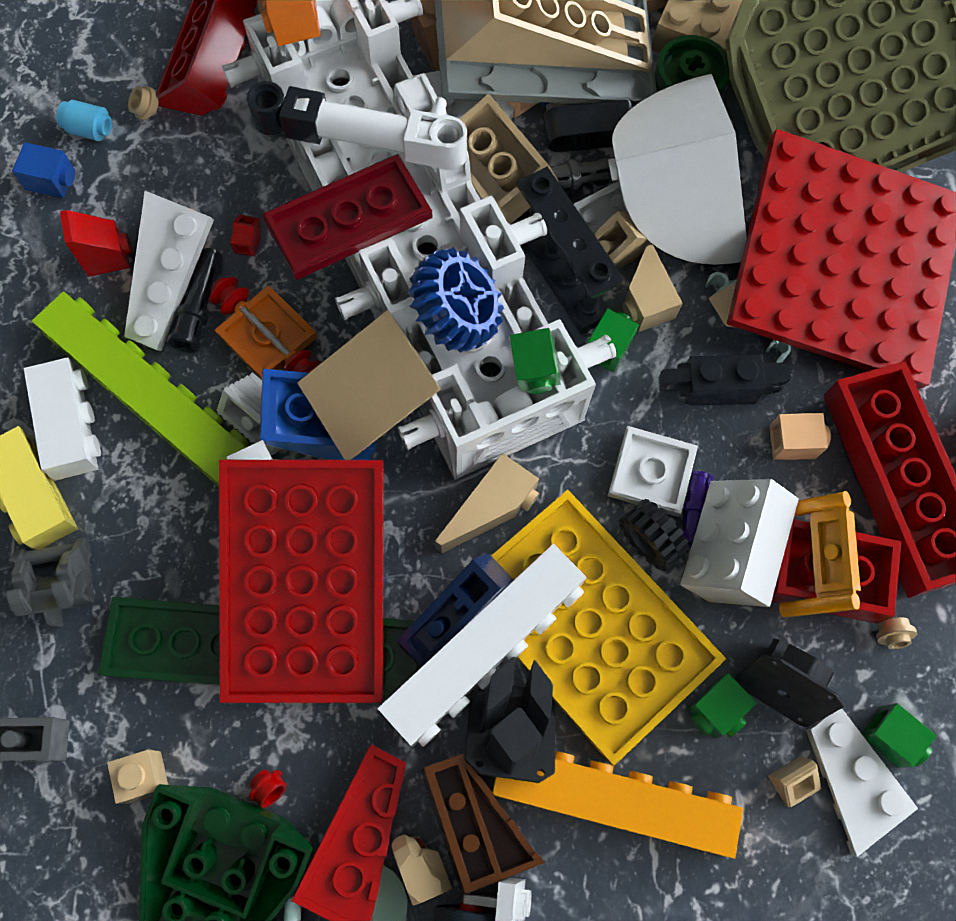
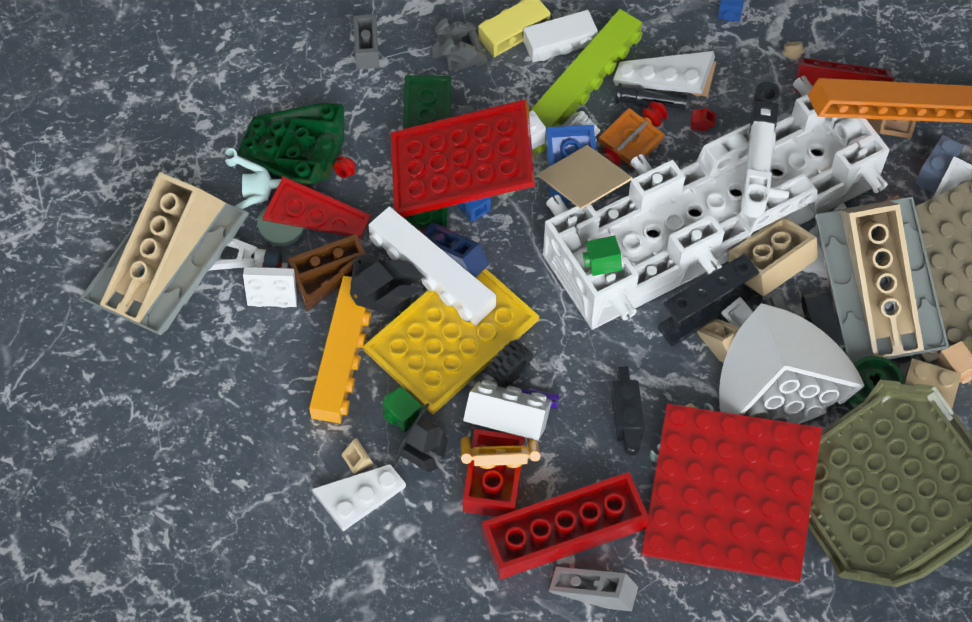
camera: 90 degrees right, 10 degrees down
(84, 120) = (773, 18): medium azure brick -> none
(95, 242) = (679, 32): red slope -> none
(136, 776) = (350, 98): tan brick -> none
(347, 216) = (696, 151): dark red tile -> none
(420, 869) = (300, 242): tan rock -> none
(455, 300) = (655, 213): blue gear -> none
(493, 502) = (530, 275): tan slope -> none
(621, 331) = (651, 341): green brick -> none
(651, 294) = (691, 364): tan slope -> none
(653, 470) = (558, 369): white plate -> none
(799, 436) = (591, 461): light nougat brick -> none
(896, 633) = (456, 519): tan plate -> none
(899, 736) = (387, 516): green brick -> none

